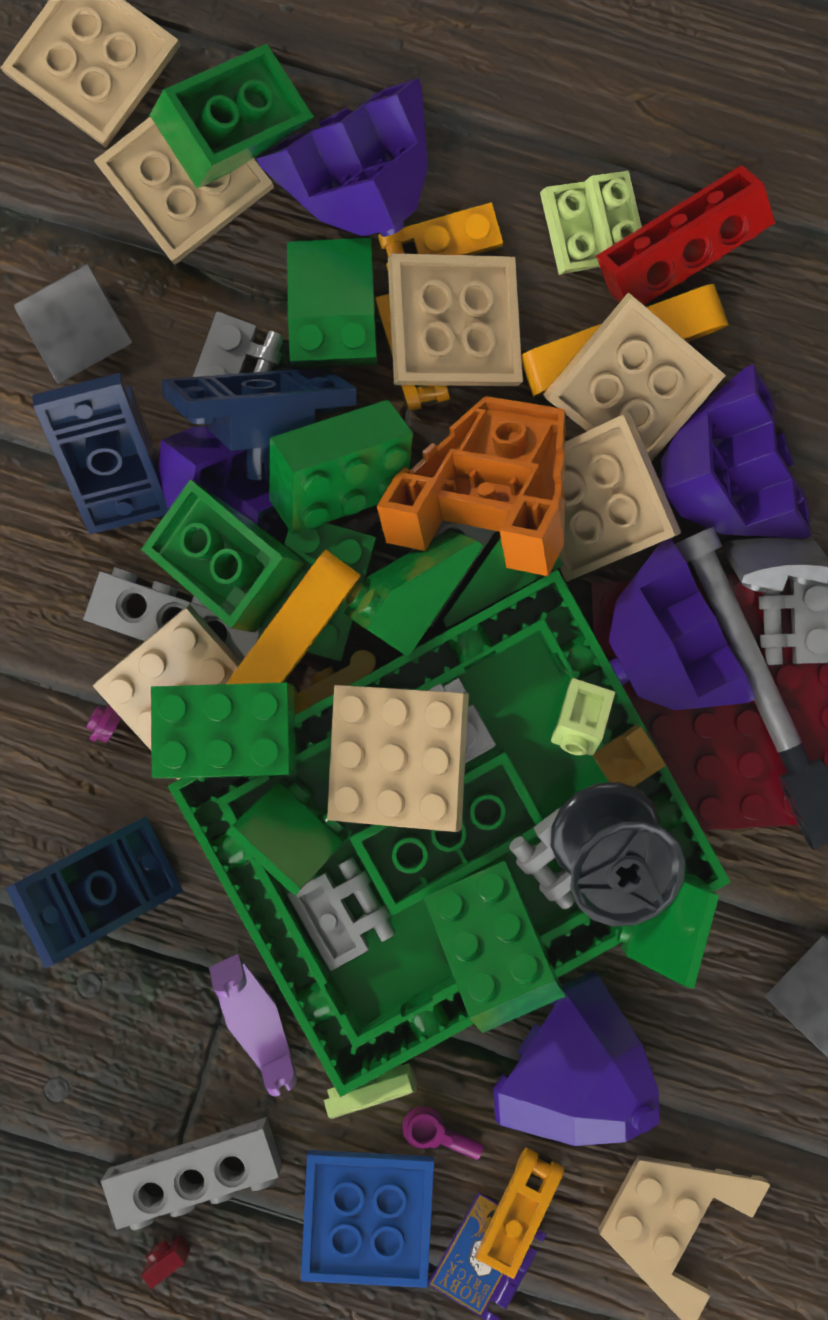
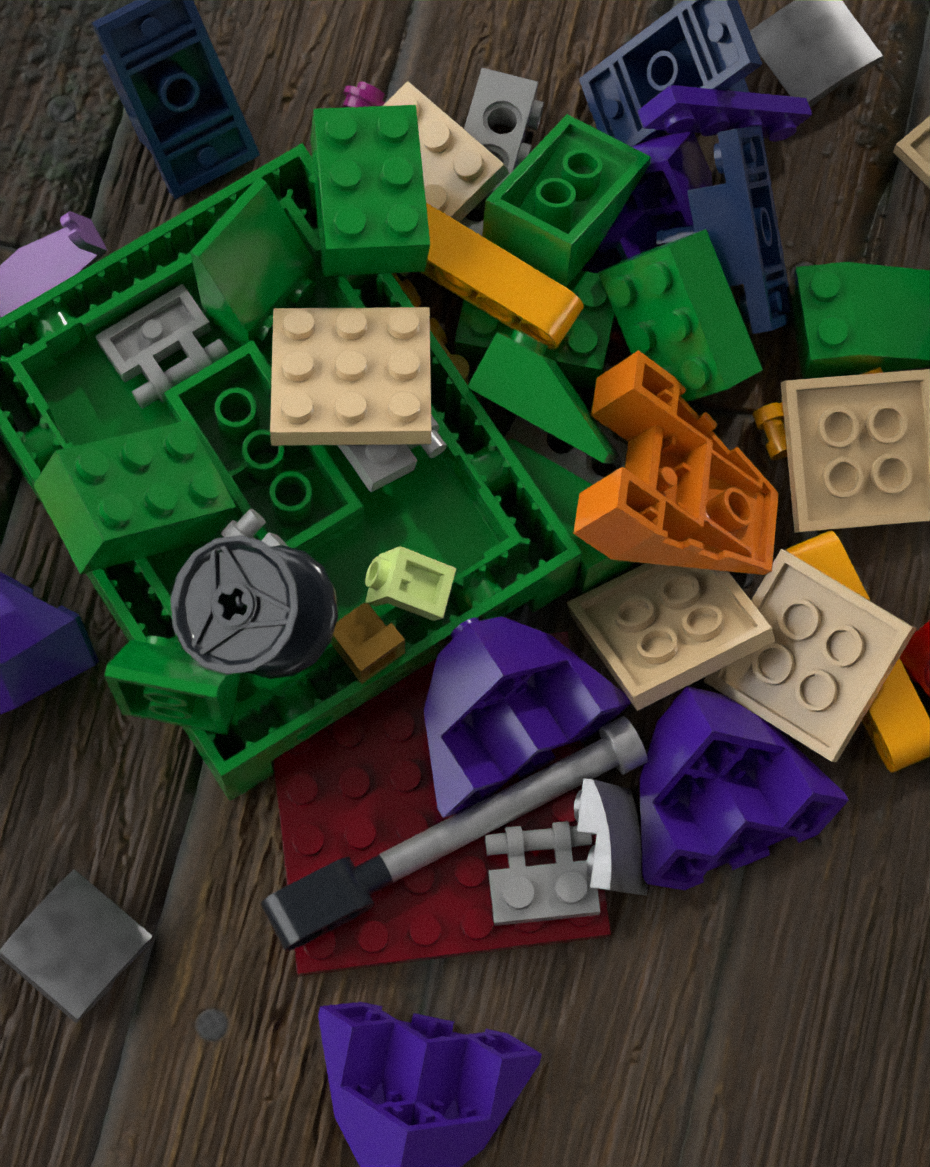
camera: 85 degrees right, 15 degrees down
(149, 417) = (716, 110): none -> dark purple plate
(232, 343) = (809, 217): light grey plate -> none

